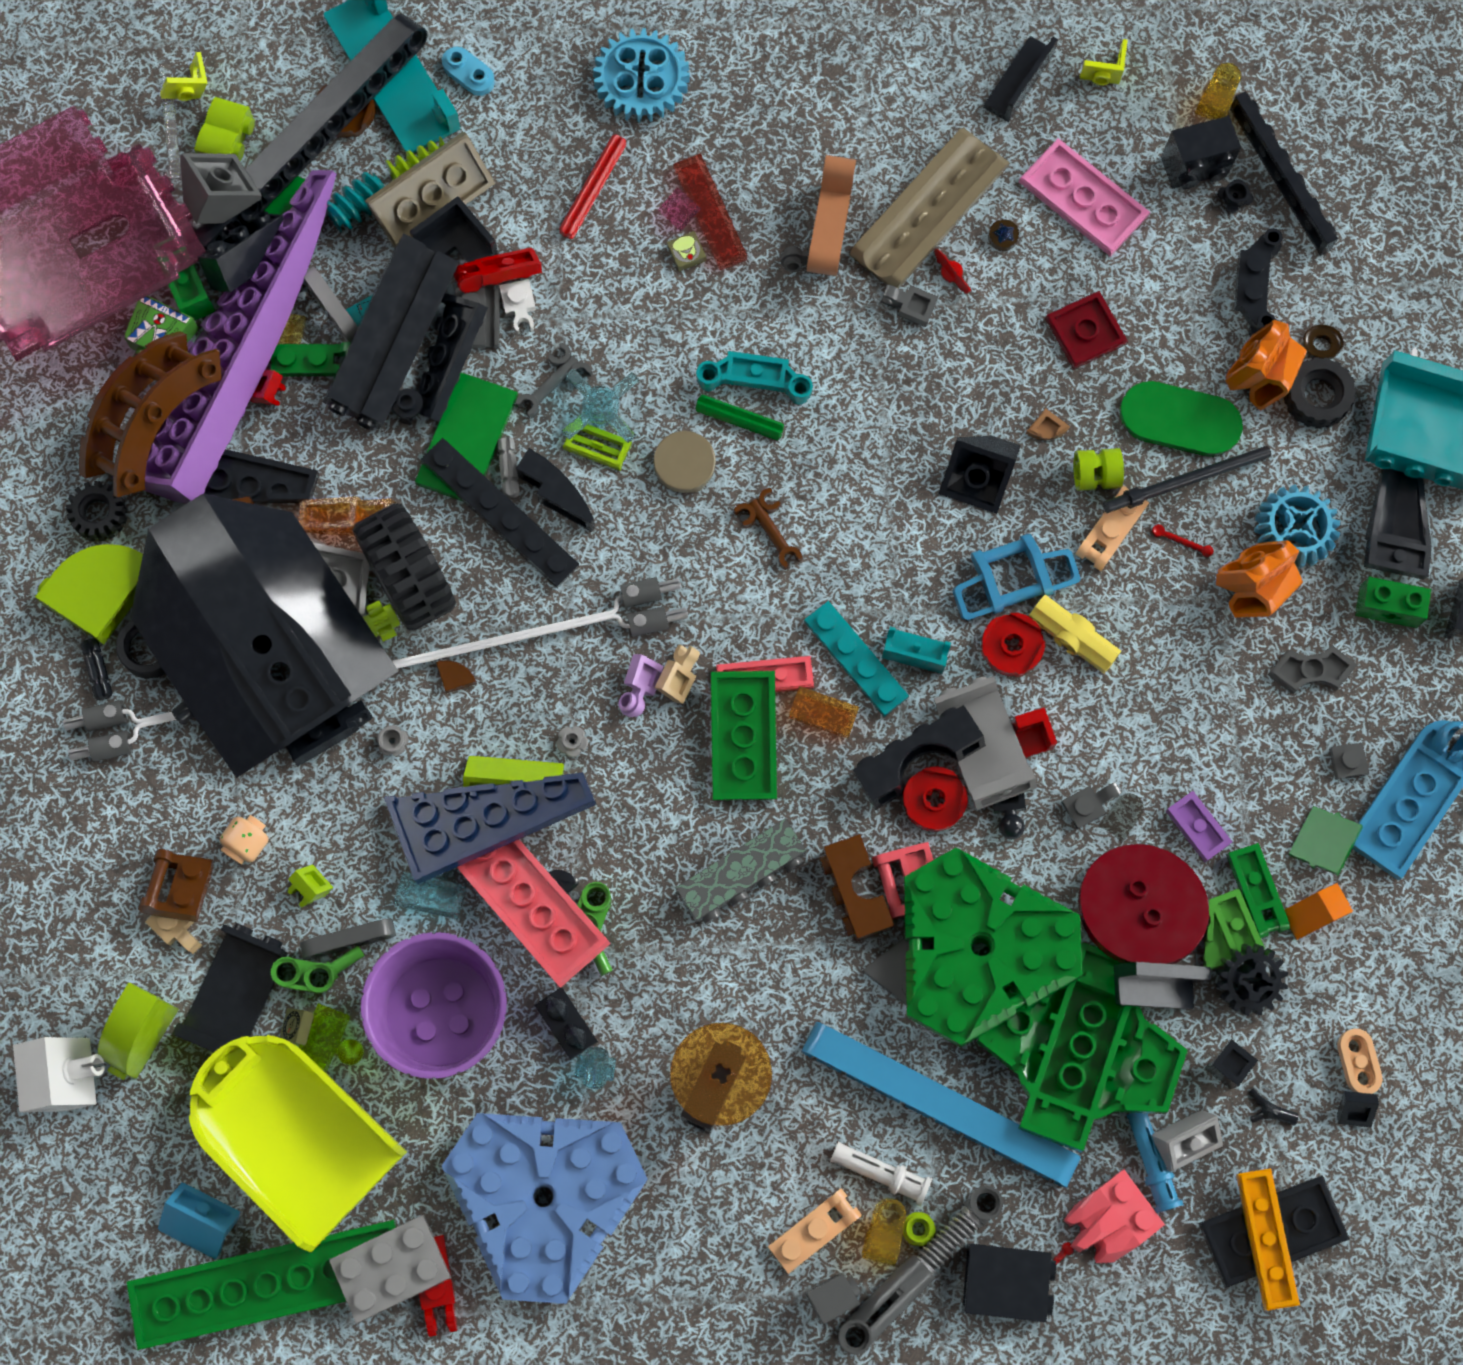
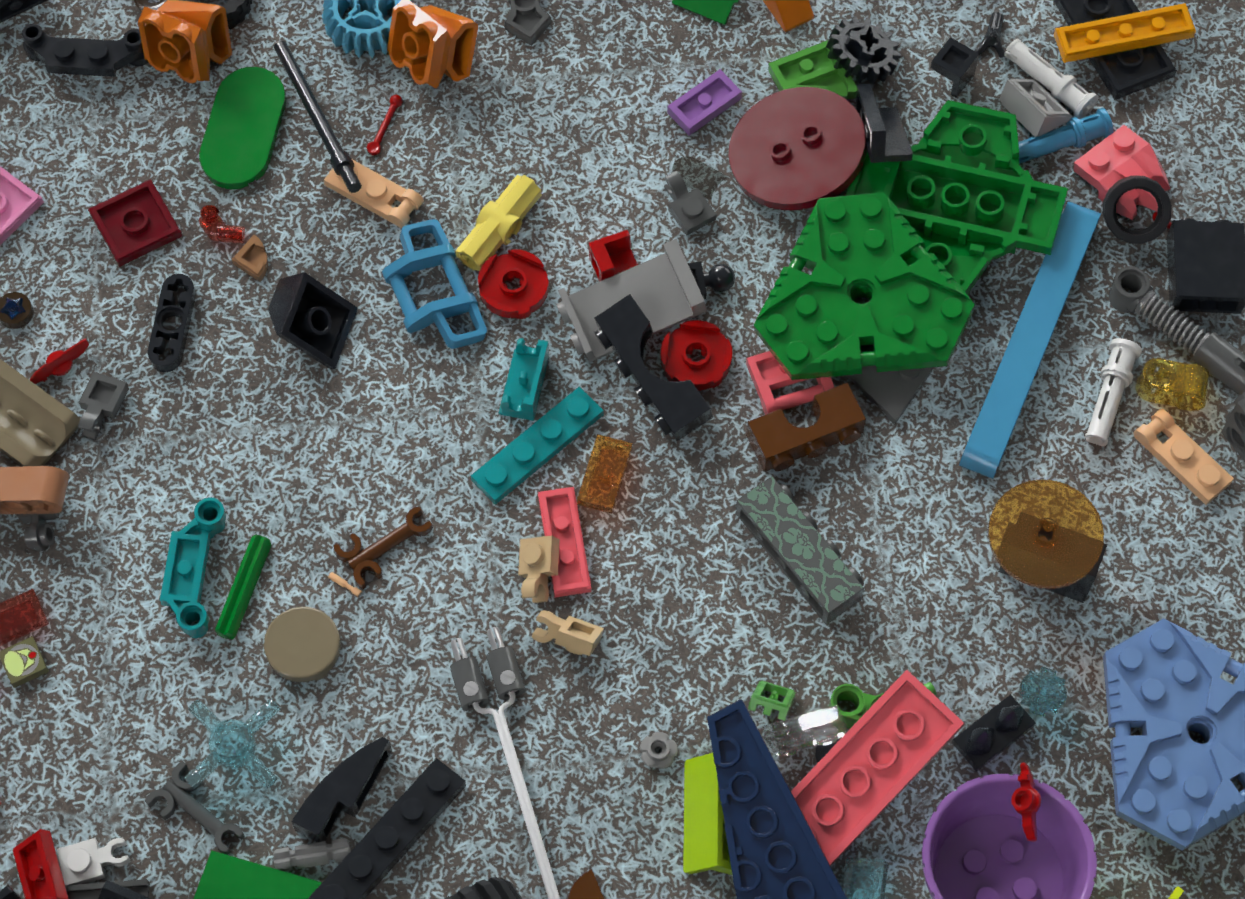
camera: 90 degrees left, 10 degrees down
(477, 1023) = (1027, 802): none -> red piece
(573, 871) = (805, 731): none -> clear plate
(589, 454) = (305, 725): lime tile -> none
(589, 826) = (772, 702): none -> bright green tile
(642, 678) = (579, 673): lavender plate -> none
(742, 493) = (343, 583): none -> light nougat piece
(743, 653) = (536, 562): none -> tan plate
(743, 735) = (640, 555): green plate -> none
(928, 1224) = (1165, 345): lime plate -> none
(996, 352) = (165, 309): none -> black beam
(1078, 396) = (216, 227): none -> clear red arm
(1089, 1225) = (1160, 222): none -> black tyre
(1109, 469) = (306, 201): lime wheel -> none
(1210, 1171) = (1062, 87): none -> white pin
(1258, 889) = (759, 49): green plate -> none

